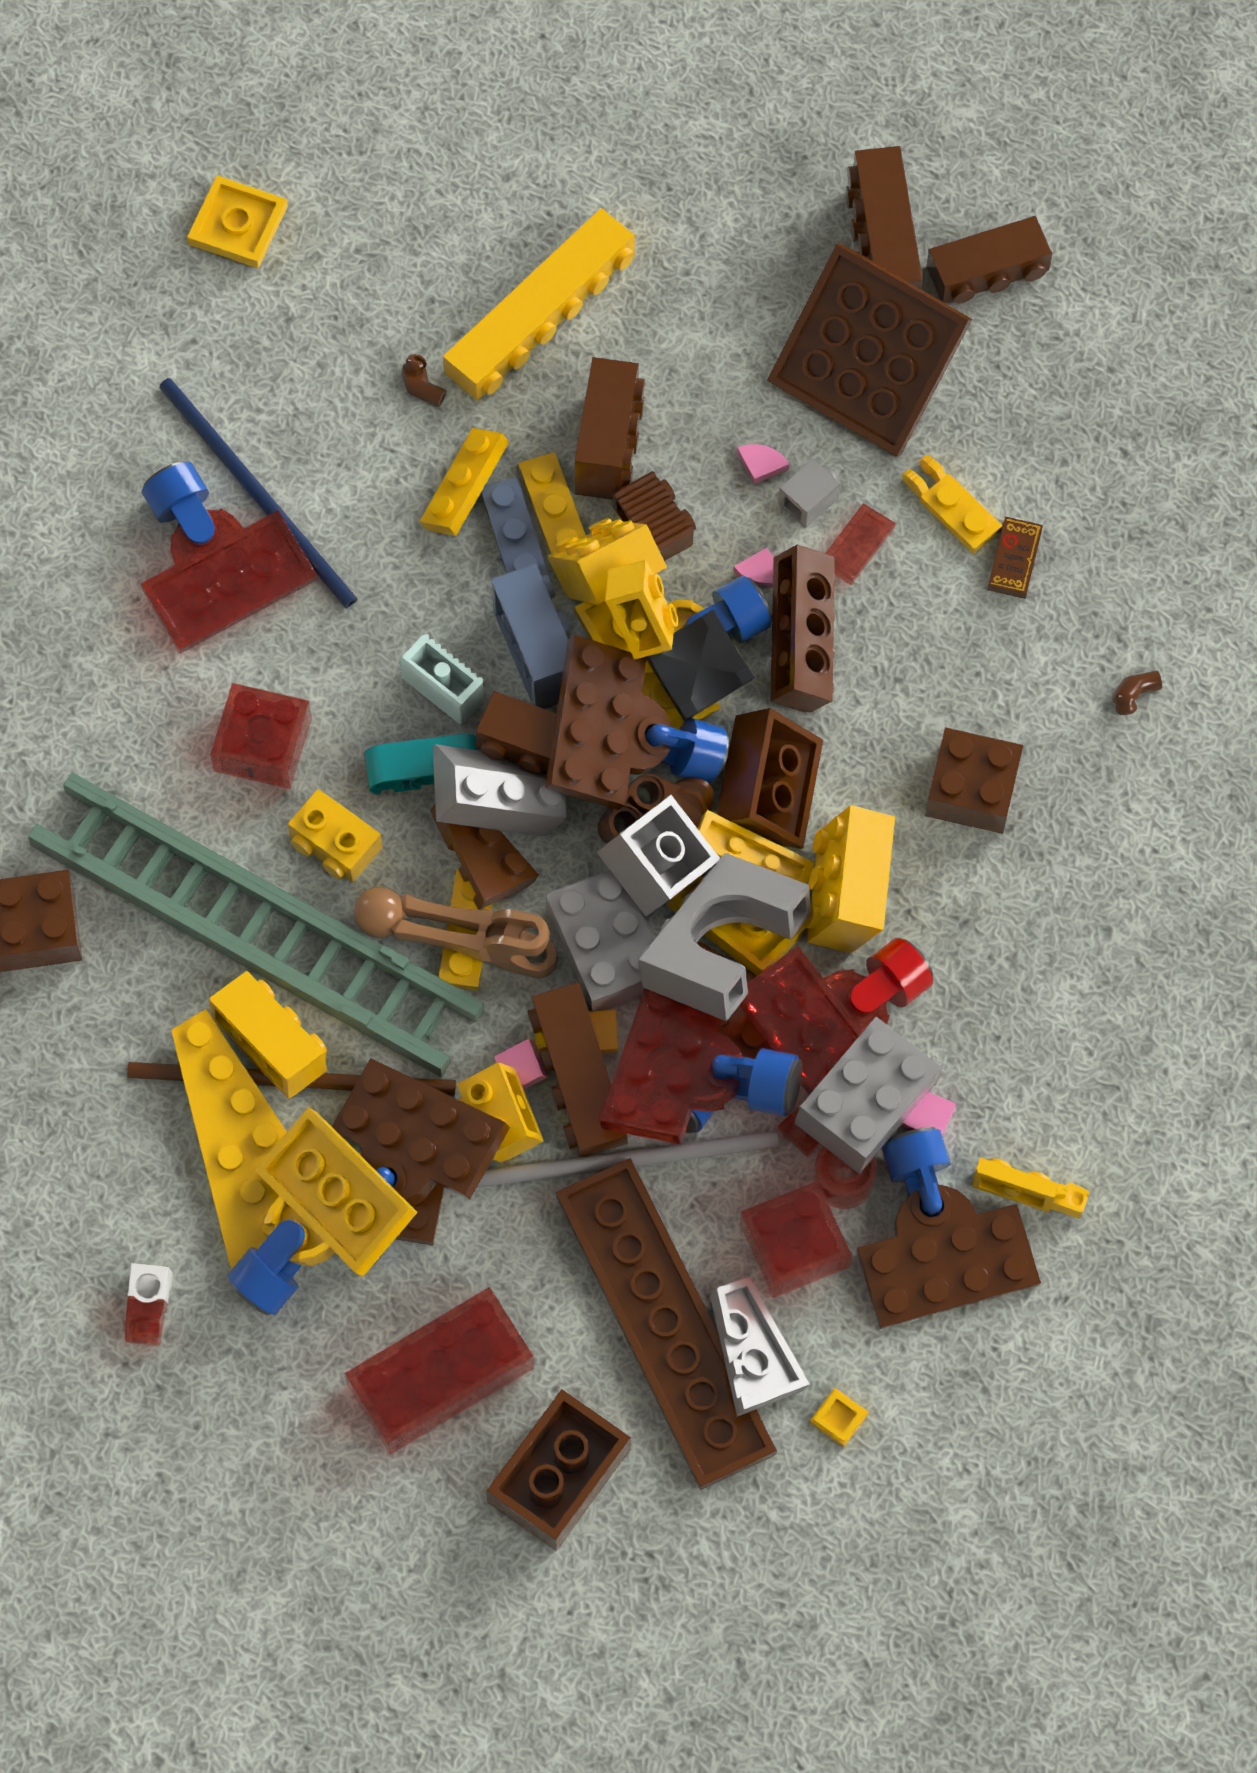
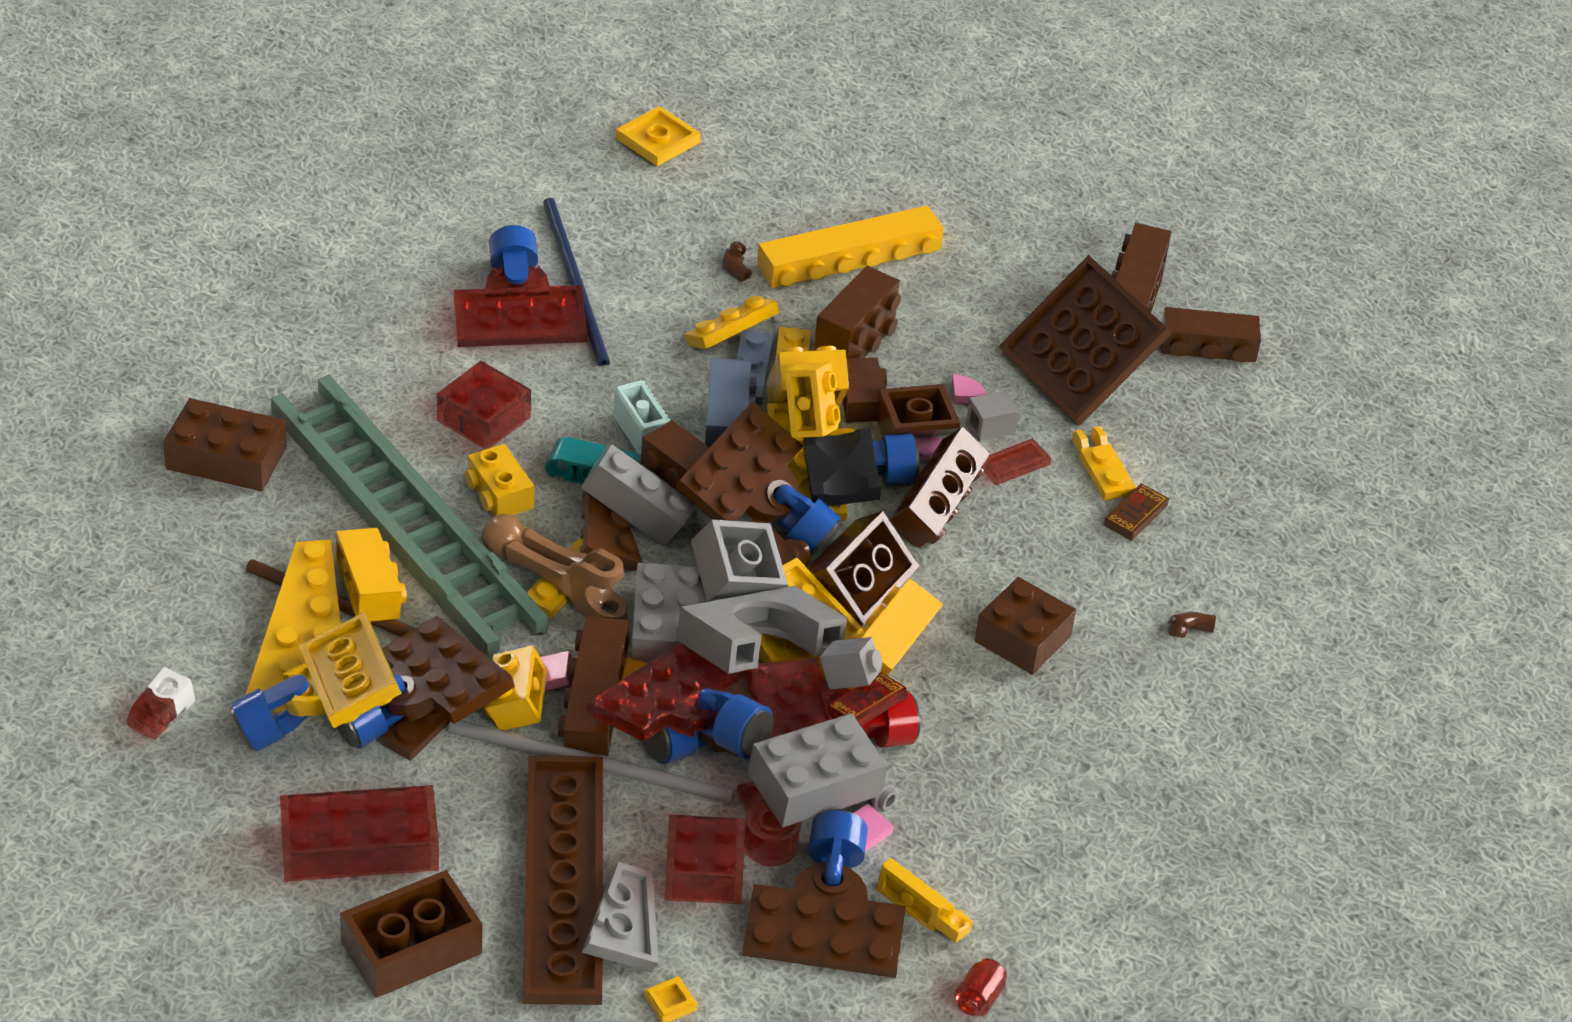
camera: 20 degrees right, 25 degrees down
(735, 539) = (916, 411): none -> reddish brown slope
(841, 944) = (851, 663): none -> light grey brick
(876, 981) = (870, 700): none -> clear red tile
(1130, 1265) = (981, 987): none -> clear red brick

